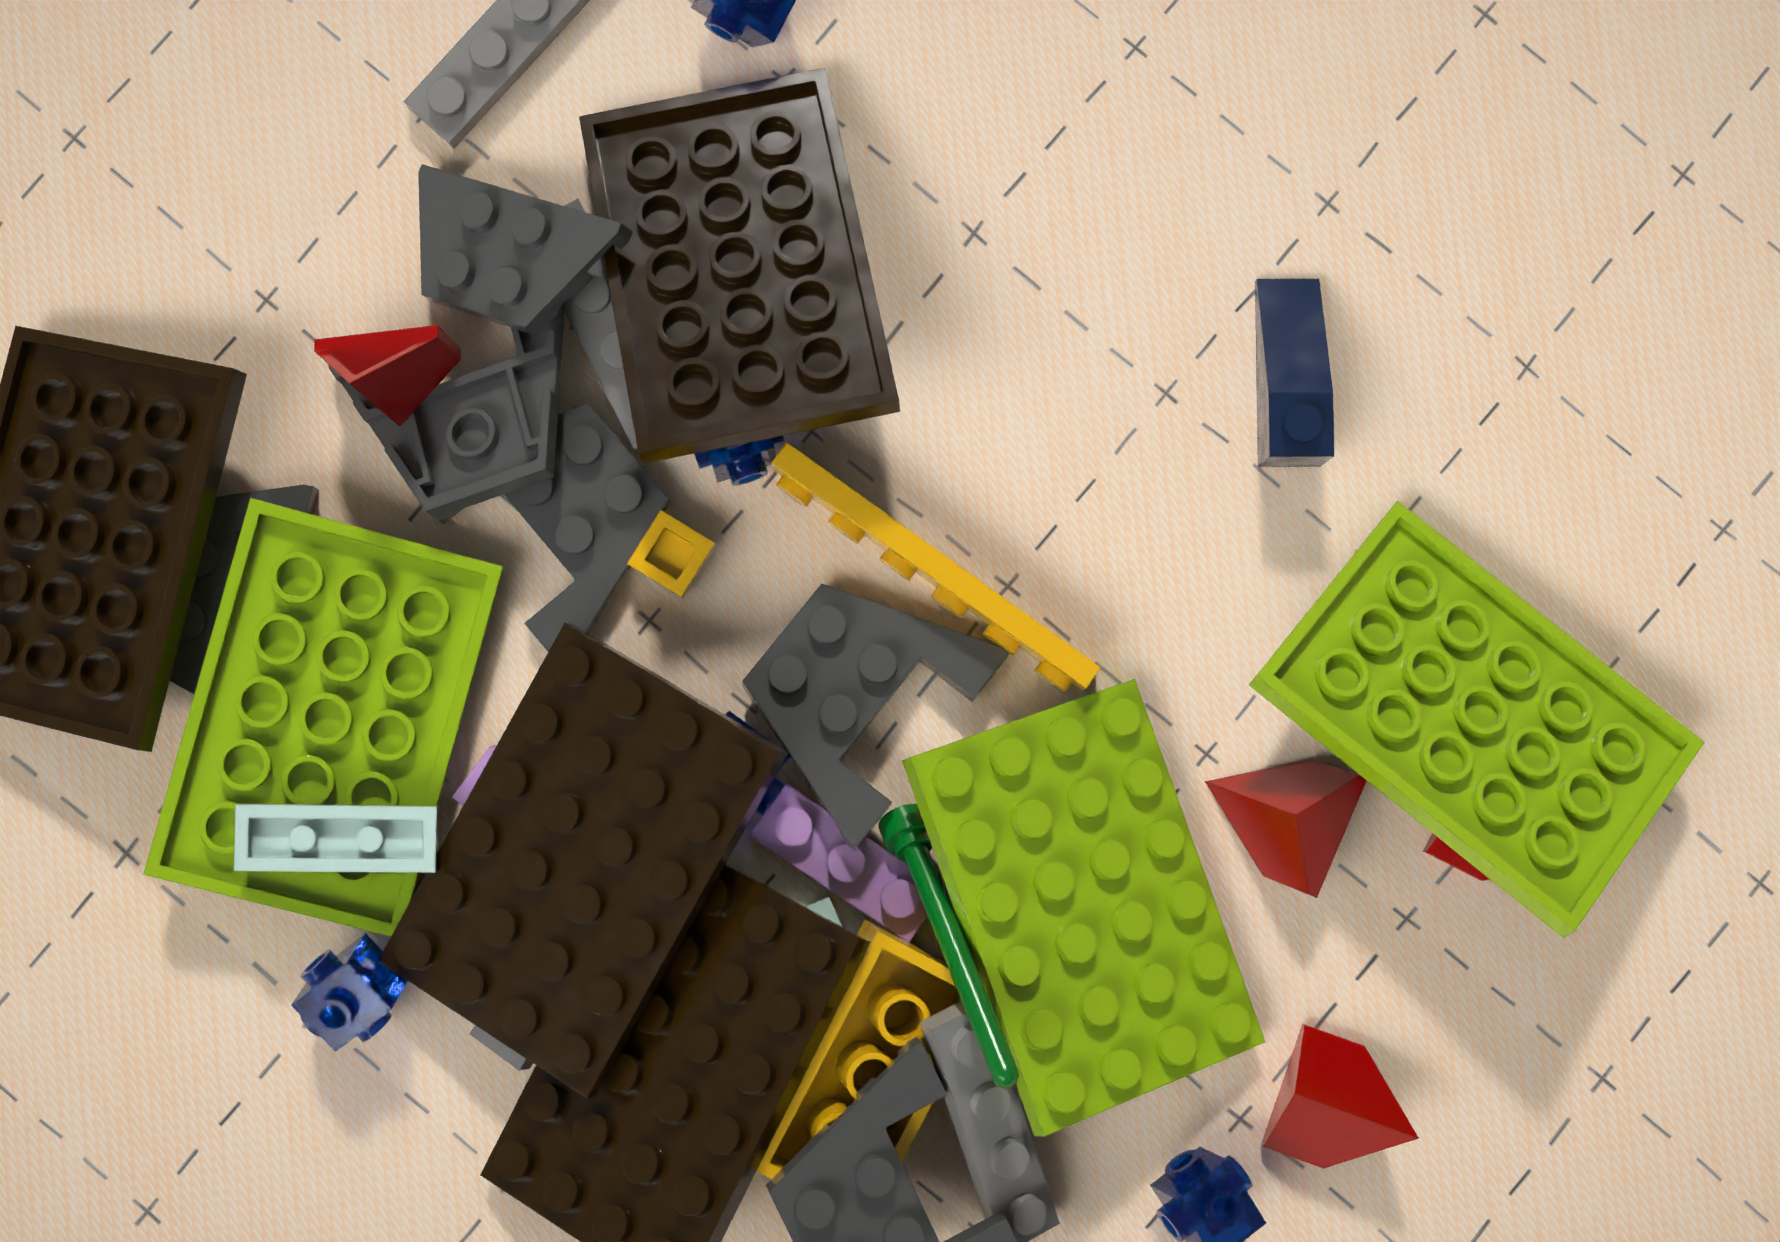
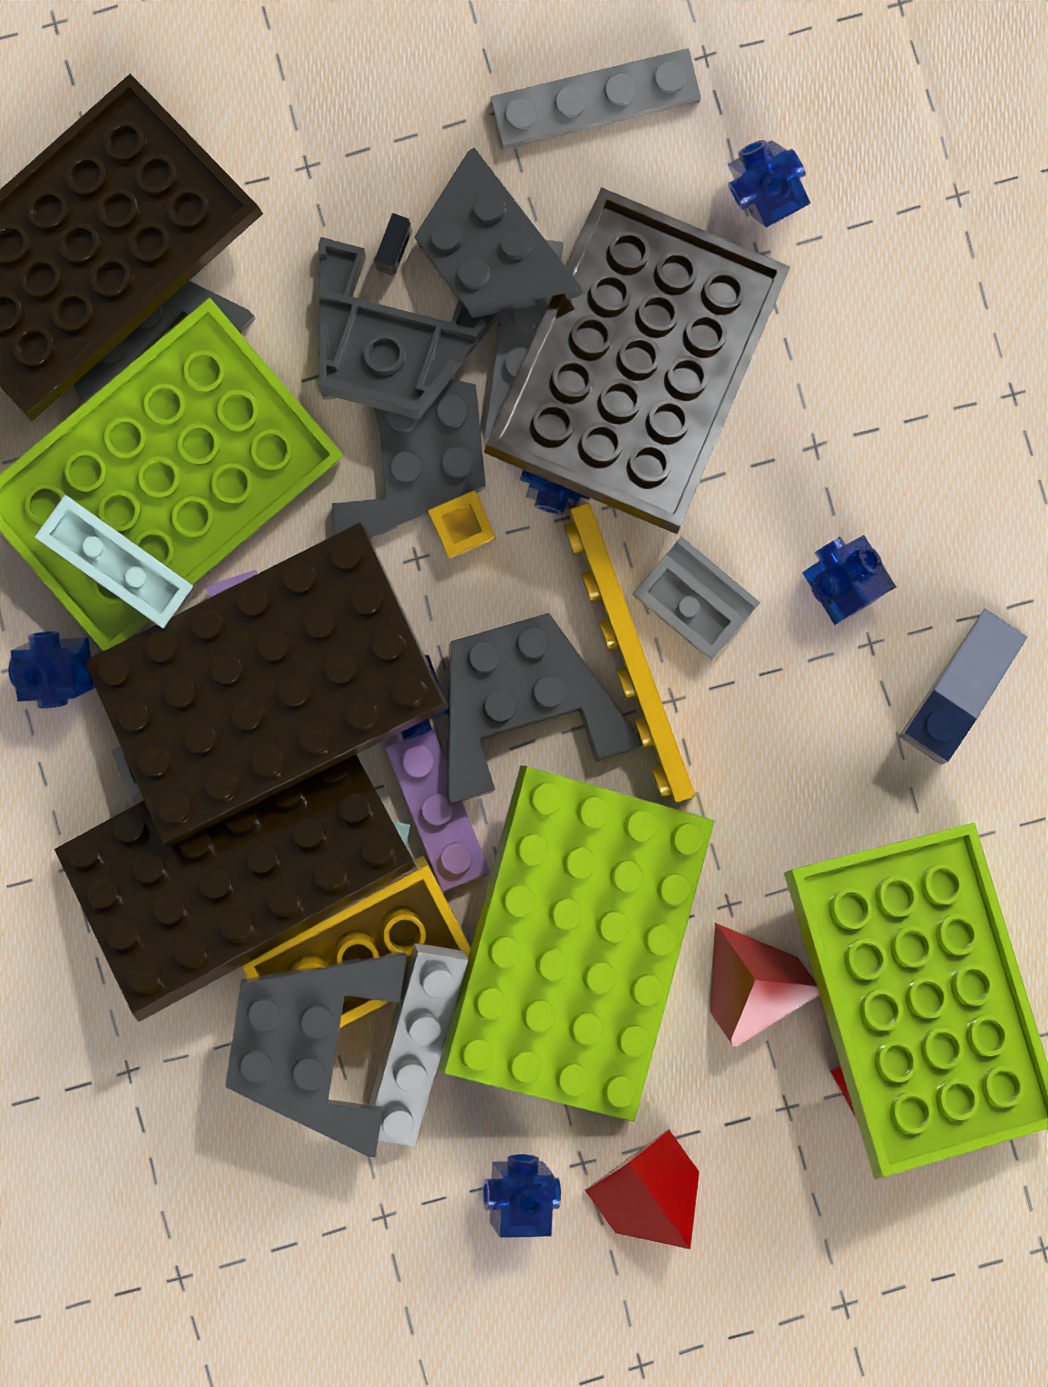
camera: 35 degrees right, 0 degrees up
(392, 366) = (362, 275): red slope -> none
(403, 305) = (393, 244): none -> black tile
(908, 839) = (488, 823): green piece -> none
(961, 466) = (696, 598): none -> light grey plate
(1101, 340) = (848, 577): none -> clear blue brick

